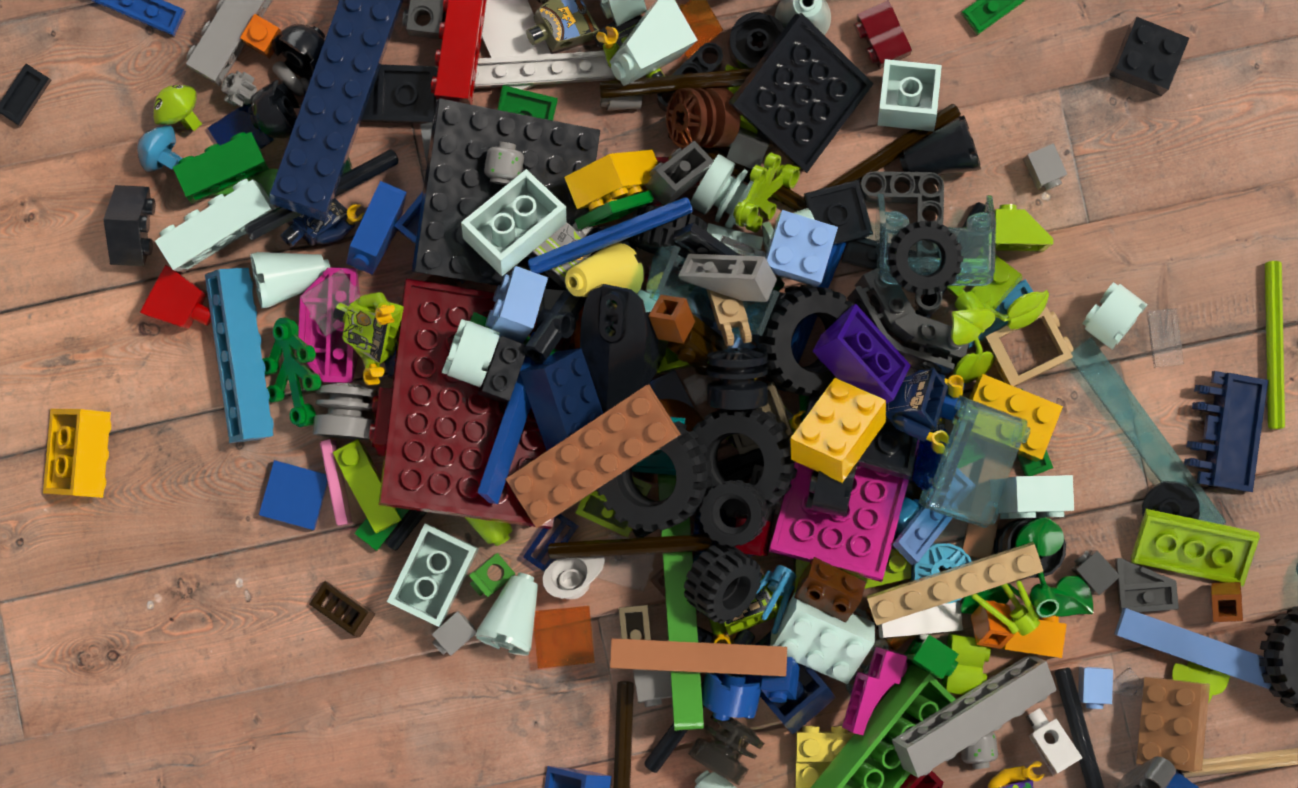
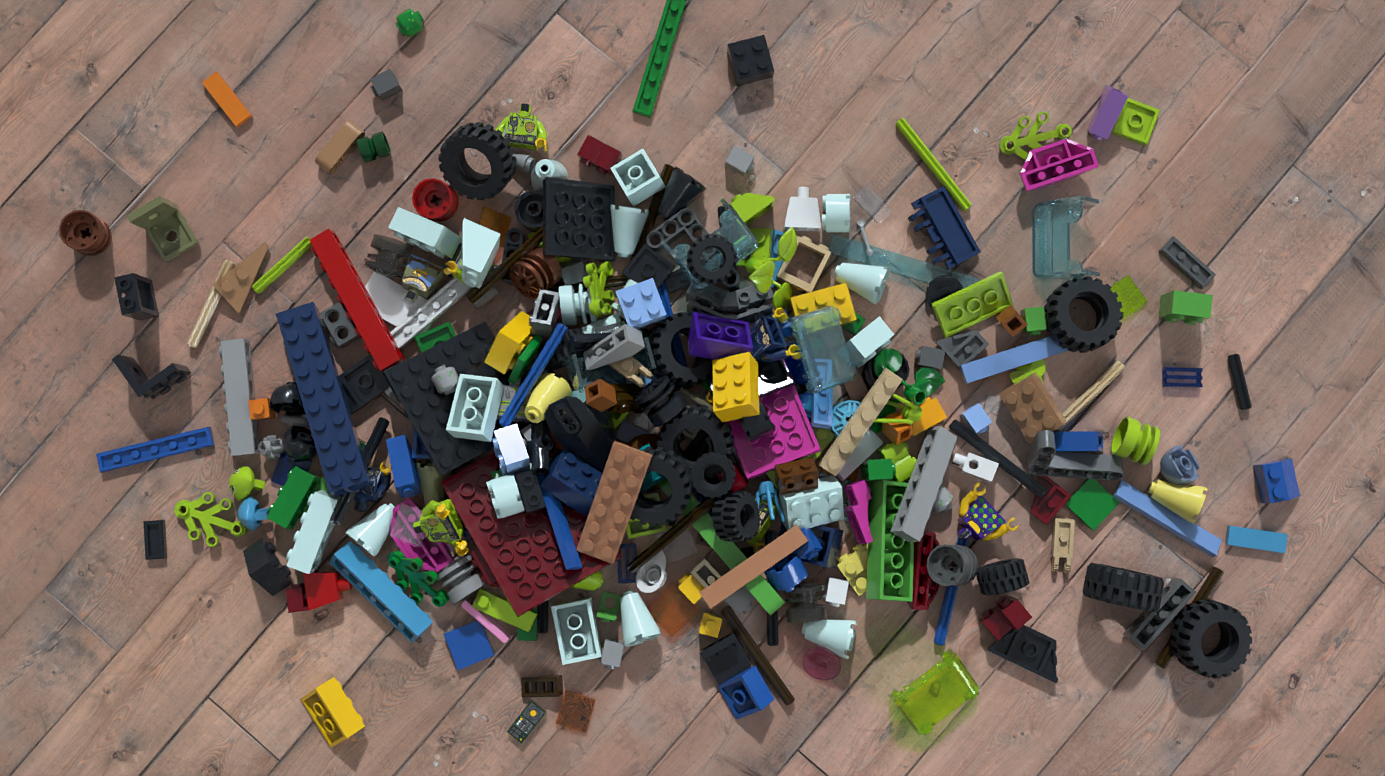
camera: 35 degrees left, 0 degrees up
(102, 114) = (206, 517): none -> lime plant
(136, 288) = (297, 598): none -> dark red brick
(293, 636) = (526, 721): none -> tile
(359, 669) = (575, 711): none -> clear orange piece
(394, 269) = (430, 482): none -> olive cone
(582, 741) = (725, 658): none -> black bracket
(594, 688) = (710, 624): none -> yellow brick
(605, 626) = (690, 587): none -> yellow brick
(772, 762) = (836, 591): none -> white brick
(850, 146) = (627, 228): none -> light aqua cone
(1074, 284) = (803, 212): none -> white torso
(1086, 418) = (863, 279): none -> light aqua cone
(1132, 351) = (860, 224): none -> light grey hinge
(1255, 623) = (1035, 319): none -> bright green brick

